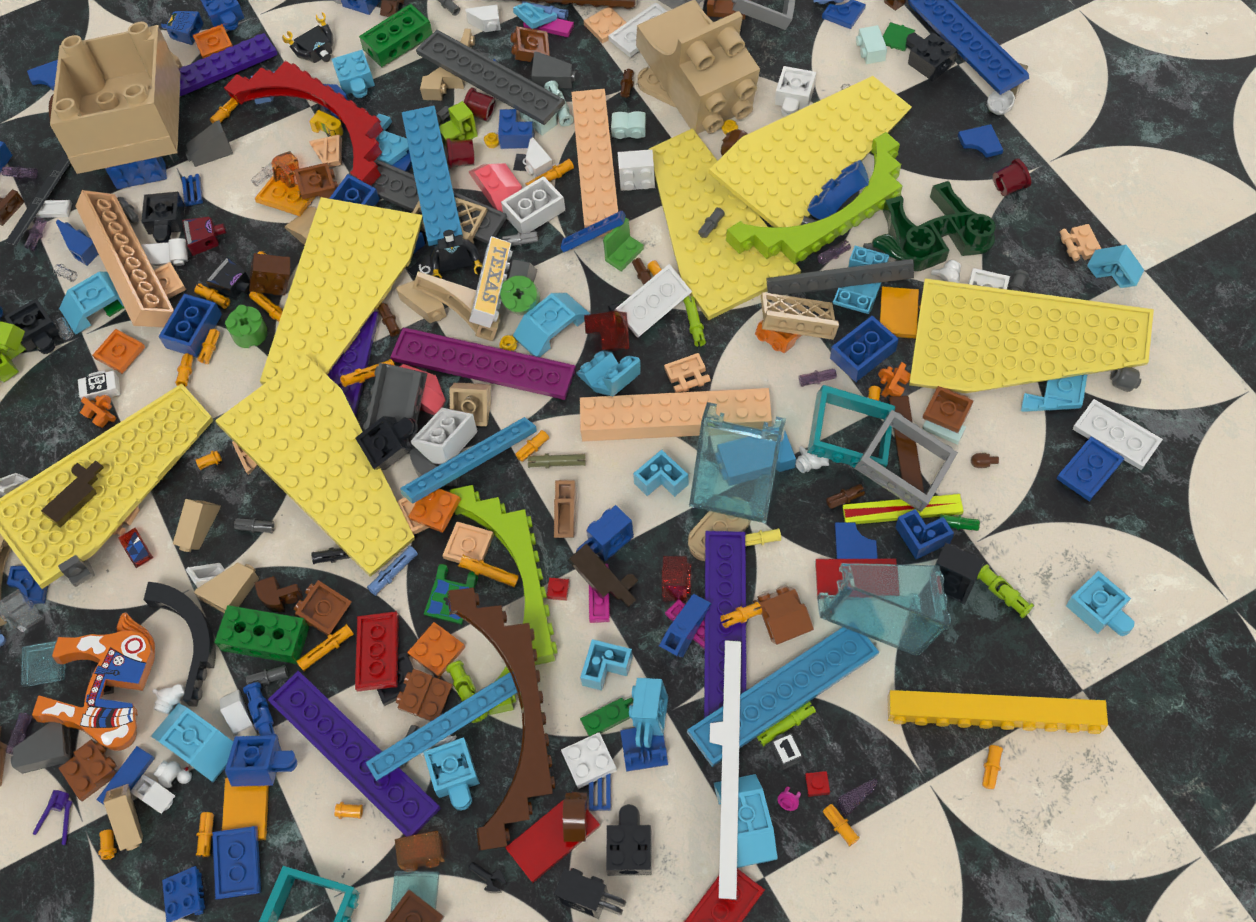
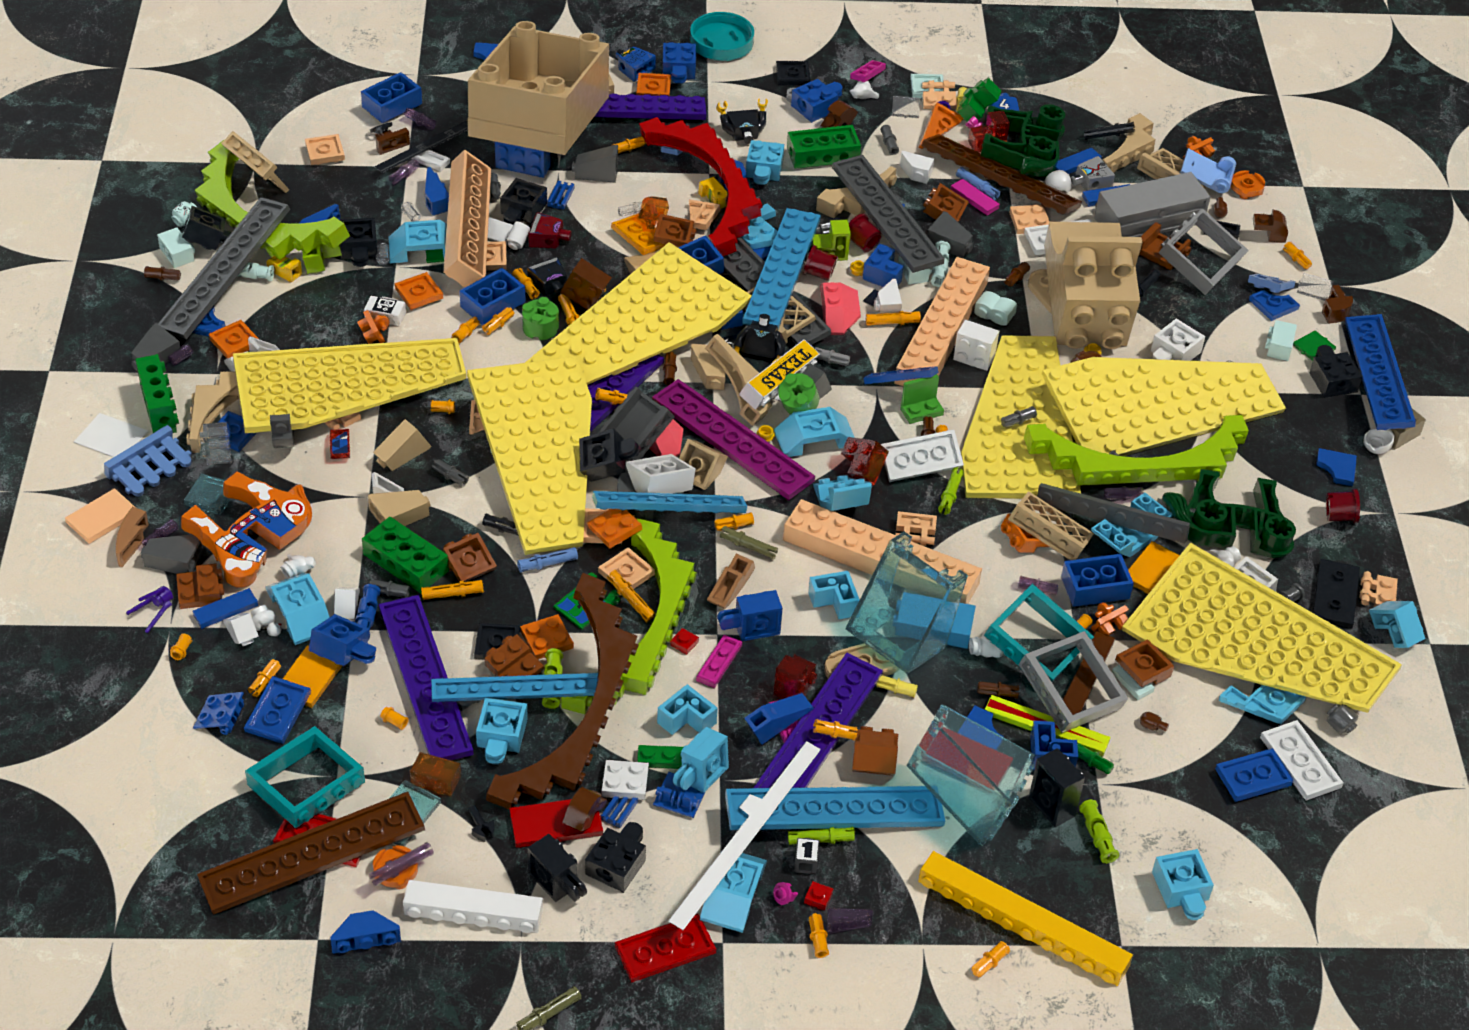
camera: 20 degrees right, 15 degrees down
(74, 495) = (314, 376): dark brown piece -> none
(123, 817) = (207, 630): tan slope -> none
(204, 648) = (346, 548): black arch -> none
(274, 597) = (433, 530): reddish brown brick -> none
(377, 651) = (494, 612): red tile -> none
(533, 15) = (963, 182): medium azure wing -> none
(533, 205) = (860, 334): white brick -> none
(600, 577) = (727, 644): dark brown piece -> none
(839, 190) = (1159, 444): blue brick -> none
(1050, 261) = (1336, 592): none -> black plate

